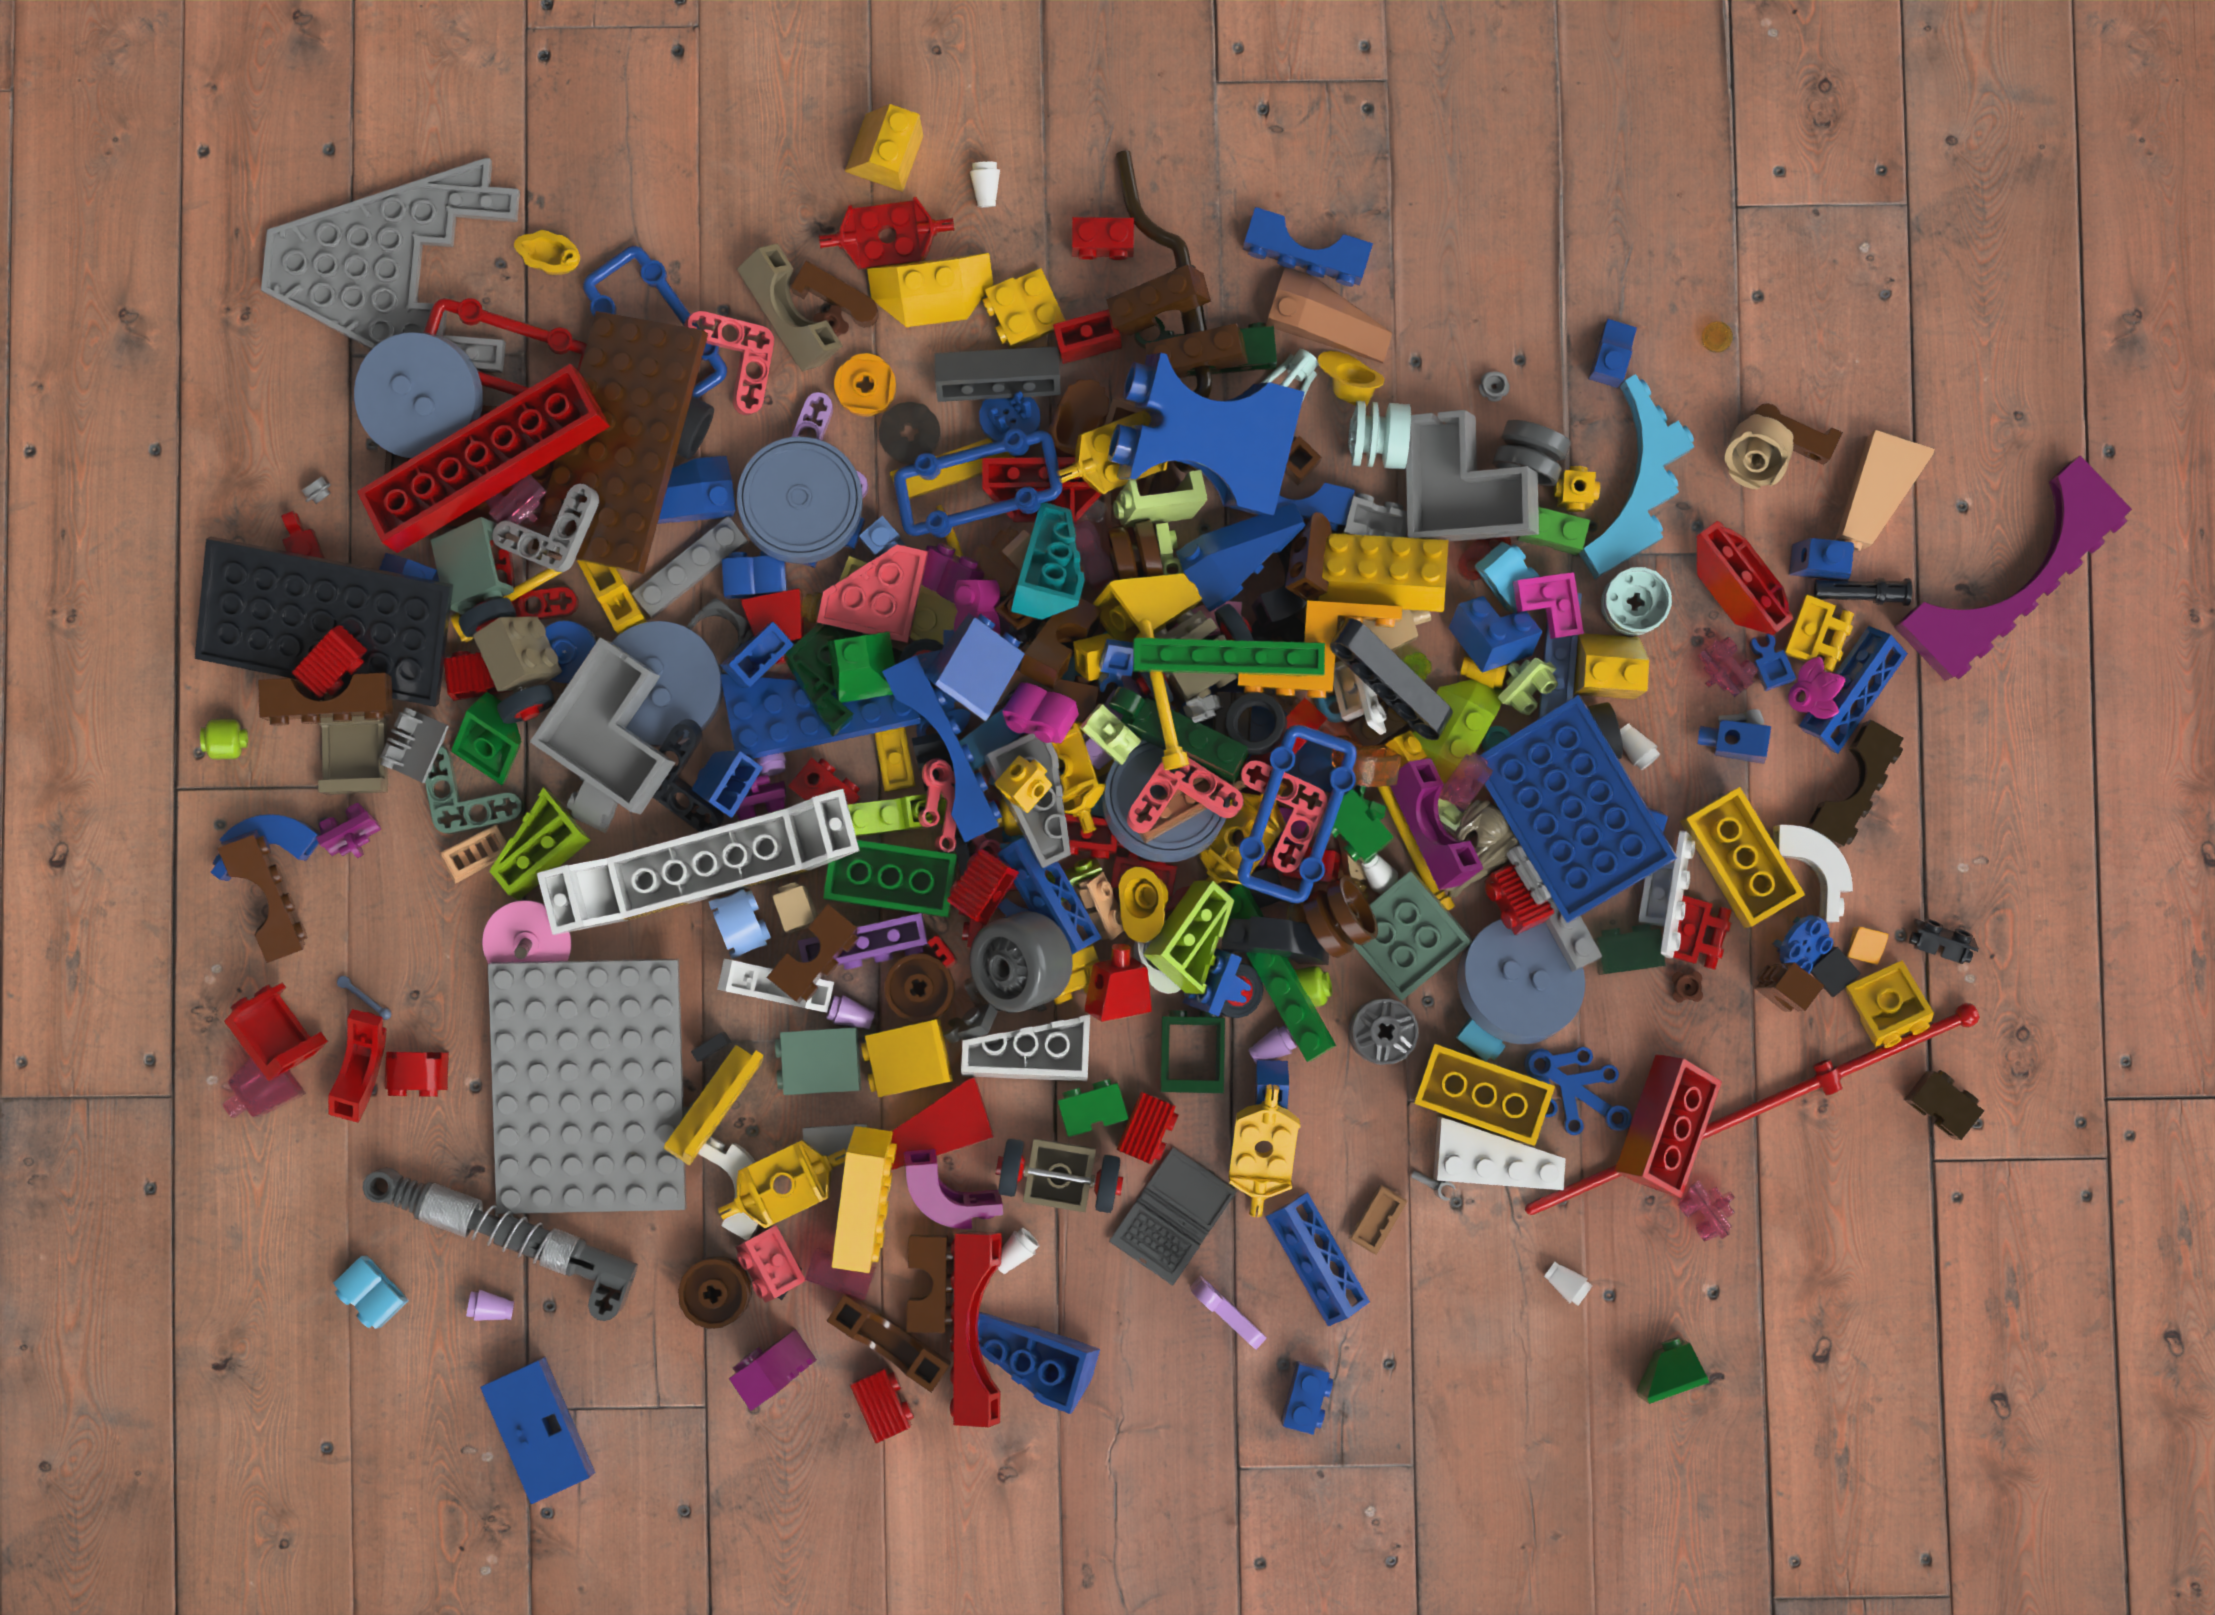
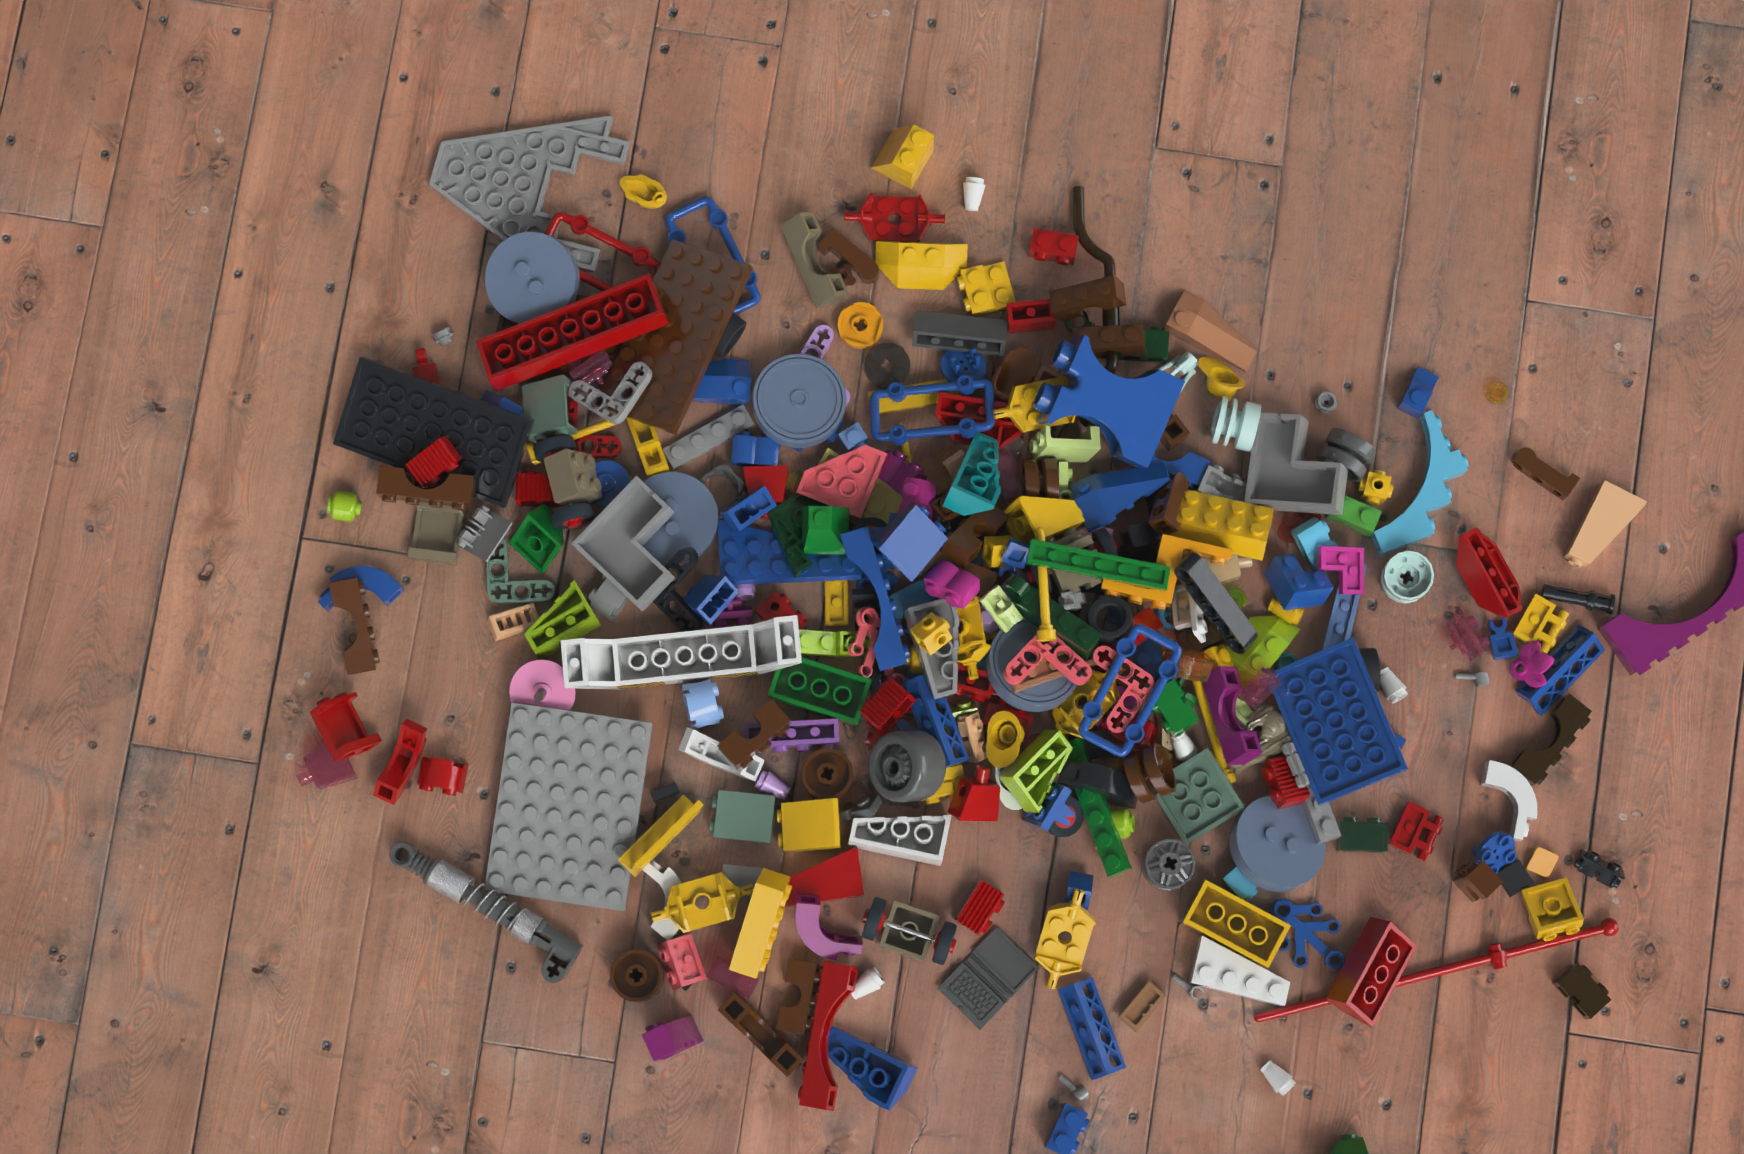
camera: 10 degrees right, 5 degrees down
(345, 982) = (400, 700): sand blue hinge -> none
(349, 835) = (425, 591): magenta hips -> none
(369, 1292) = (380, 933): medium azure brick -> none
(489, 1306) = (466, 959): lavender cone -> none
(538, 1430) = (487, 1057): blue brick -> none
(749, 353) = (779, 288): coral beam -> none
(794, 907) = (745, 699): tan brick -> none
(882, 1405) = (747, 1081): red brick -> none
(943, 951) = (849, 749): red tile -> none
(1083, 1109) = (939, 885): green brick -> none
(1179, 1017) = (1020, 882): dark green window -> none
(1216, 1302) = (1009, 1043): lavender beam -> none
(1273, 1045) = (1084, 862): lavender cone -> none
(1315, 1346) = (1079, 1093): none -> light grey hand
(1343, 260) = (1228, 292): blue arch -> none
(1524, 683) = (1315, 622): yellowish green hips -> none
(1610, 666) = (1380, 623): yellow slope -> none
(1664, 895) = (1395, 796): white bracket -> none
(1680, 993) = (1407, 866): copper plate -> none
(1715, 1221) = (1396, 1050): clear pink hips -> none
(1742, 858) = (1457, 780): yellow brick -> none
(1751, 745) = (1477, 693): blue torso -> none
(1759, 452) = (1515, 482): tan brick -> none
(1824, 559) = (1552, 569): blue torso -> none

